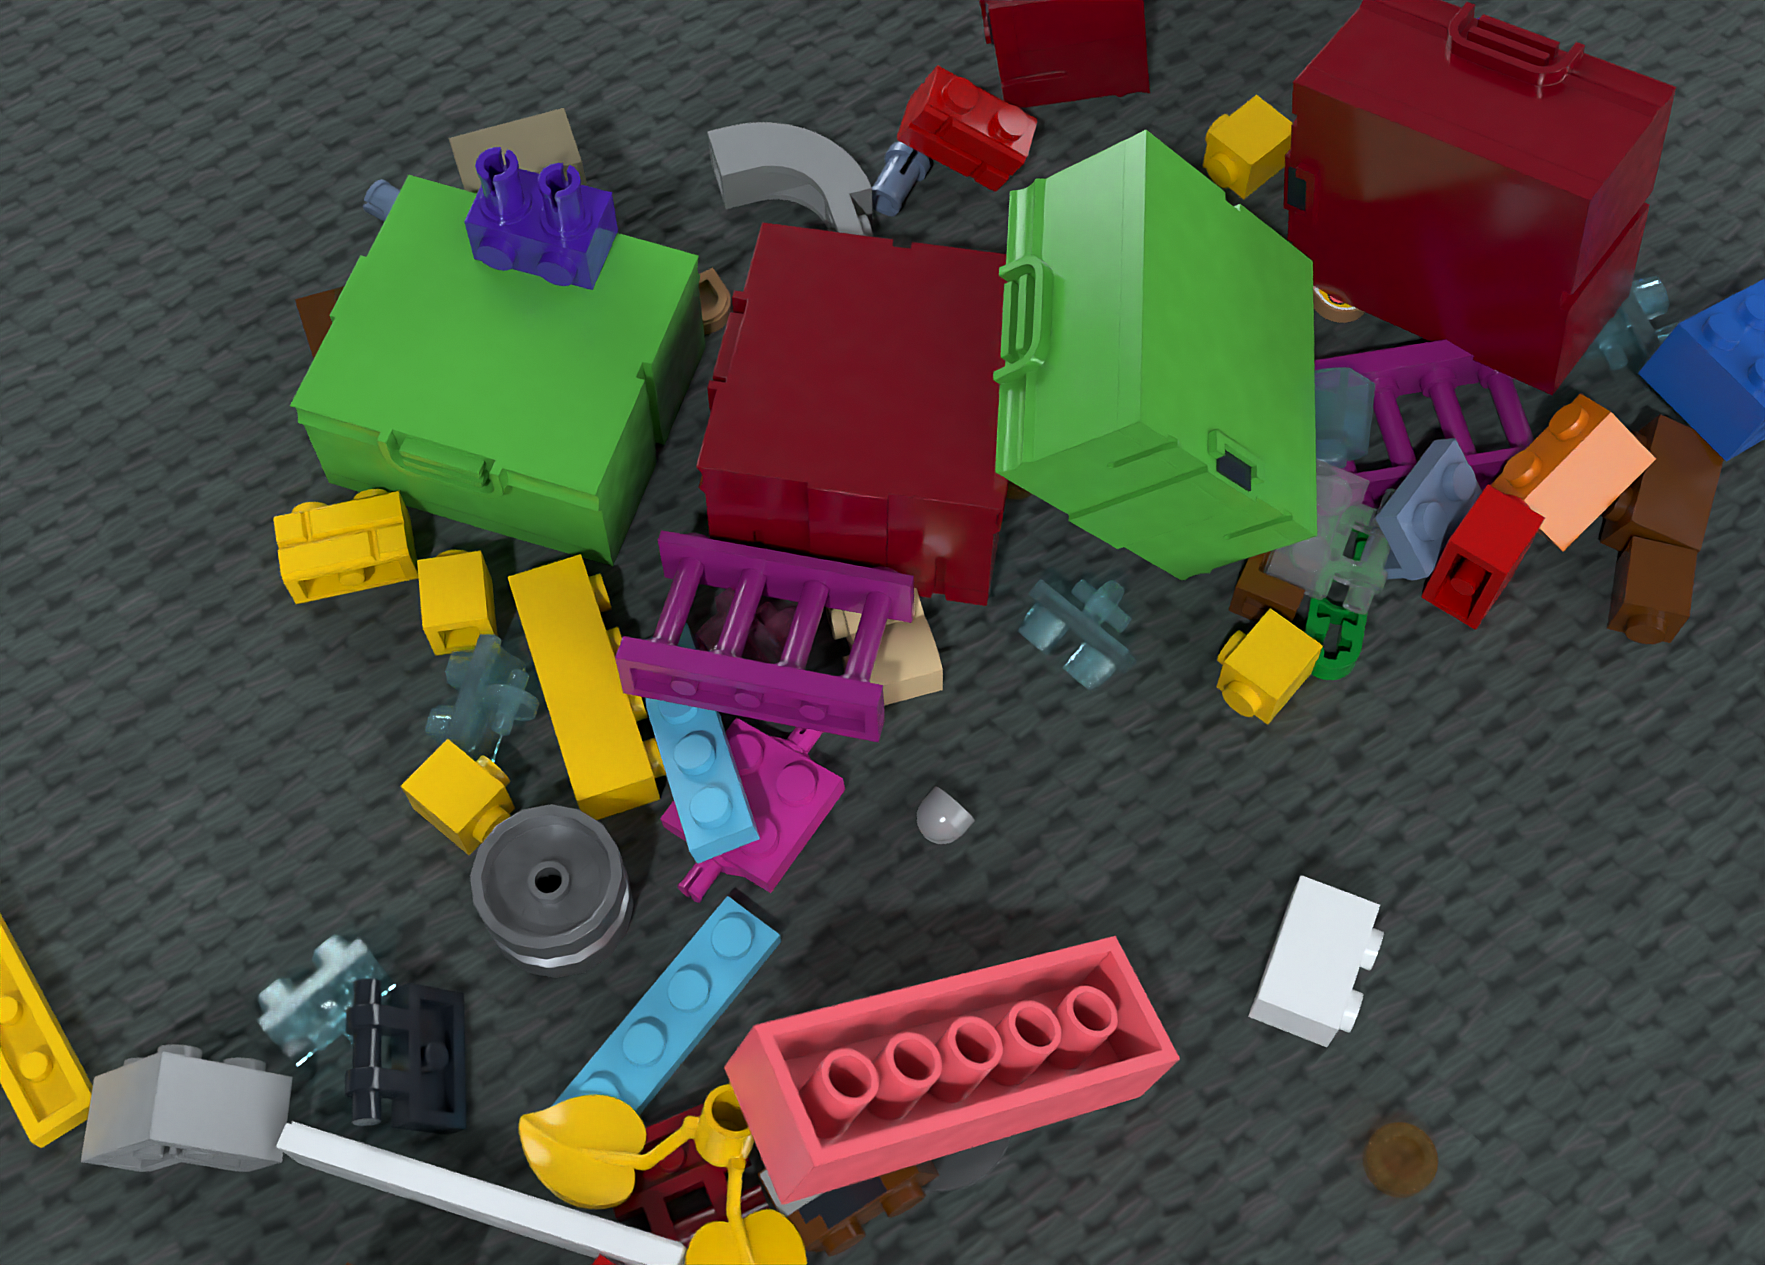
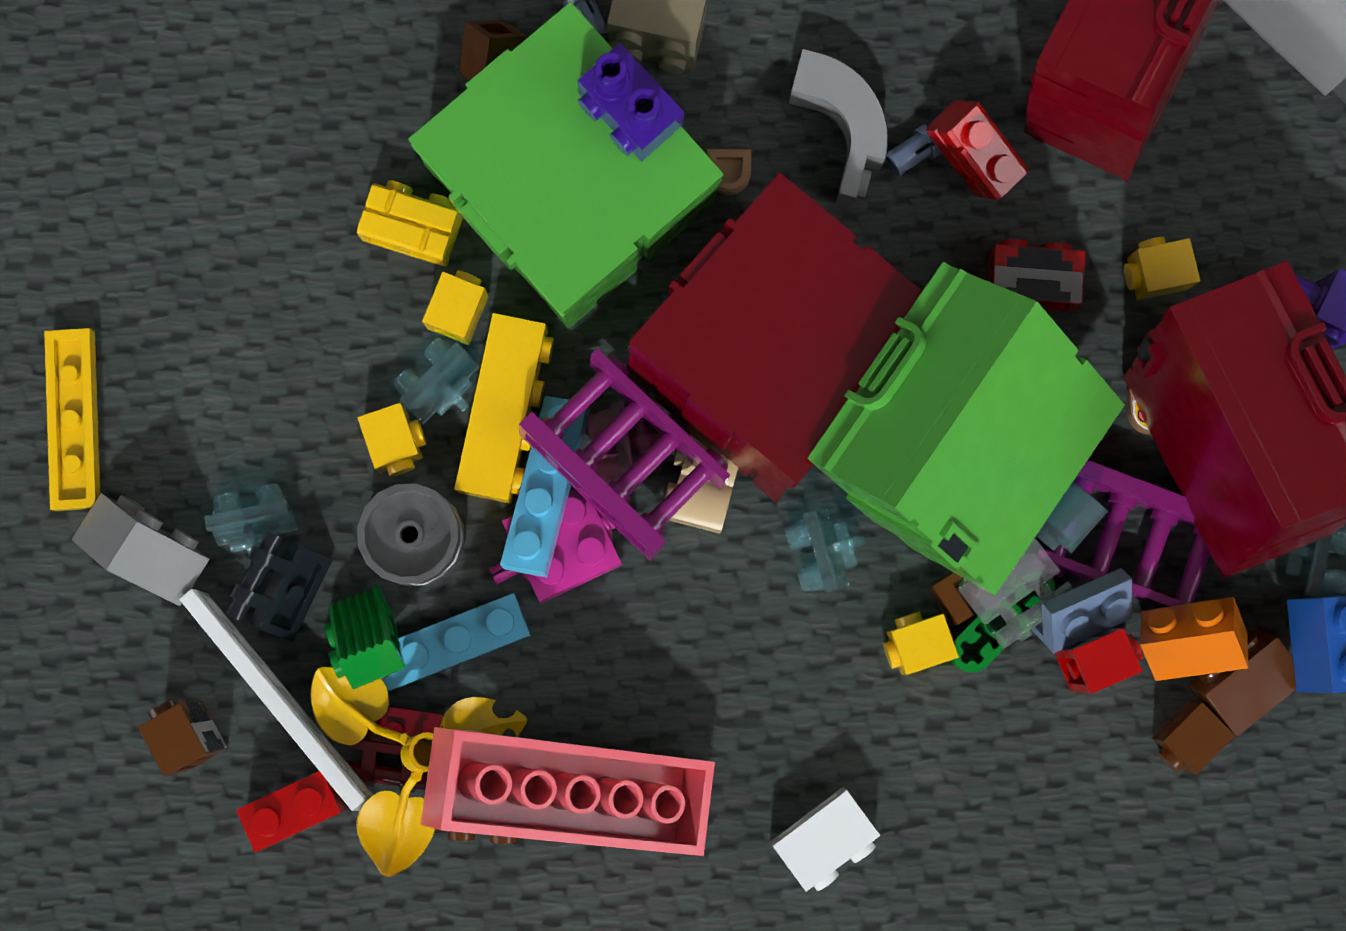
camera: 25 degrees right, 20 degrees up
(563, 1050) = (363, 638): none -> green brick
(942, 817) = (667, 619): light grey hinge -> none

